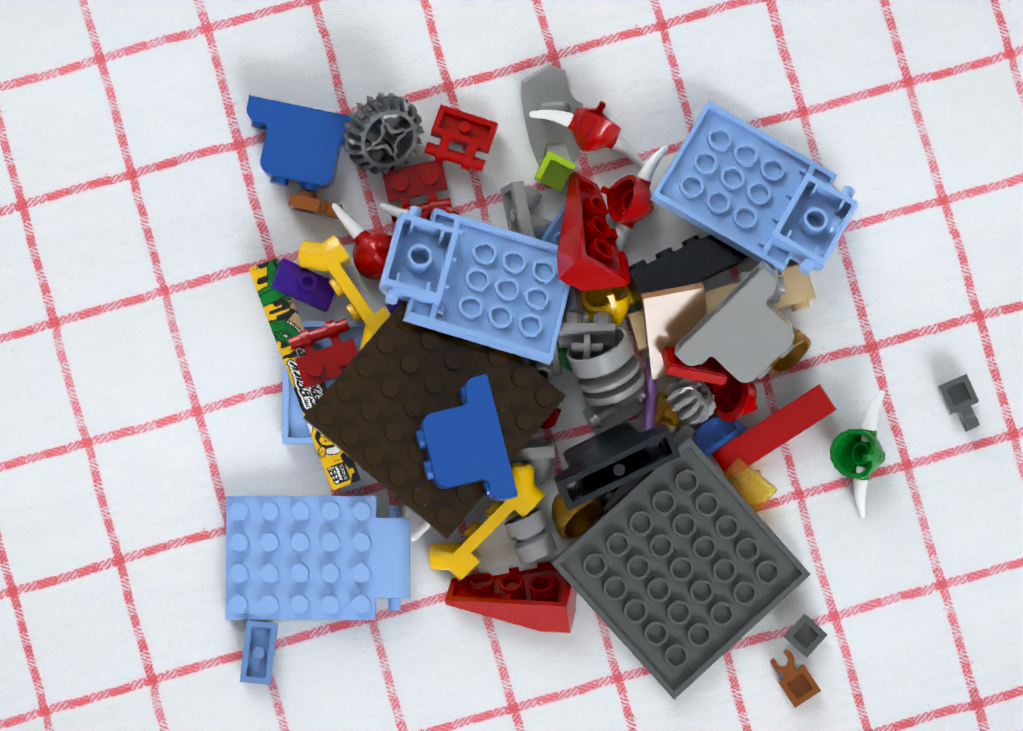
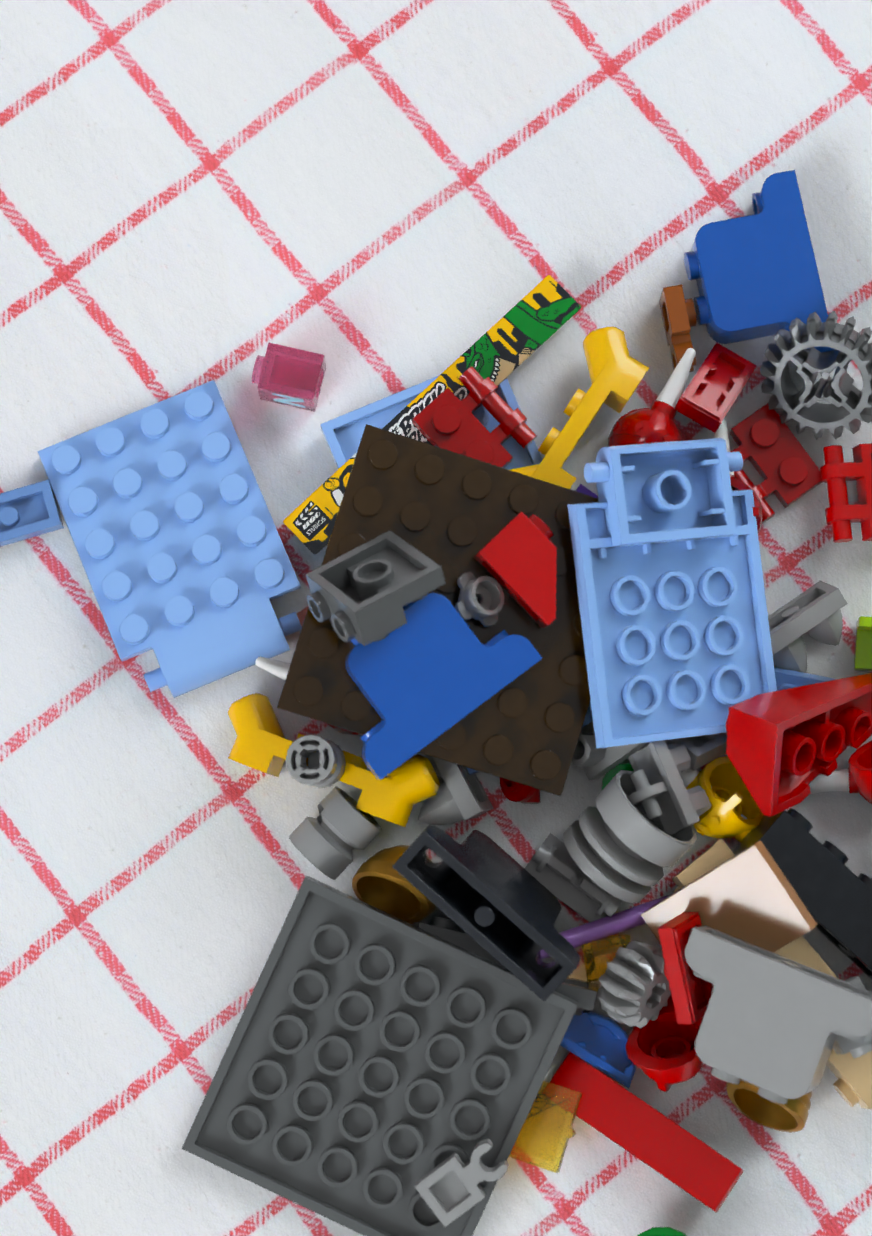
camera: 70 degrees right, 5 degrees down
(244, 450) = (289, 376): none -> clear pink brick
(303, 285) = (558, 358): dark purple plate -> none
(360, 199) = (715, 387): none -> red plate
(405, 454) = (369, 587): none -> dark grey plate
(426, 360) = (525, 565): none -> red slope
(435, 388) = (489, 597): none -> light grey plate
(490, 525) = (324, 765): none -> light grey wheel
(526, 598) = (241, 864): red wedge -> none
(761, 550) = (455, 1186): none -> light grey plate

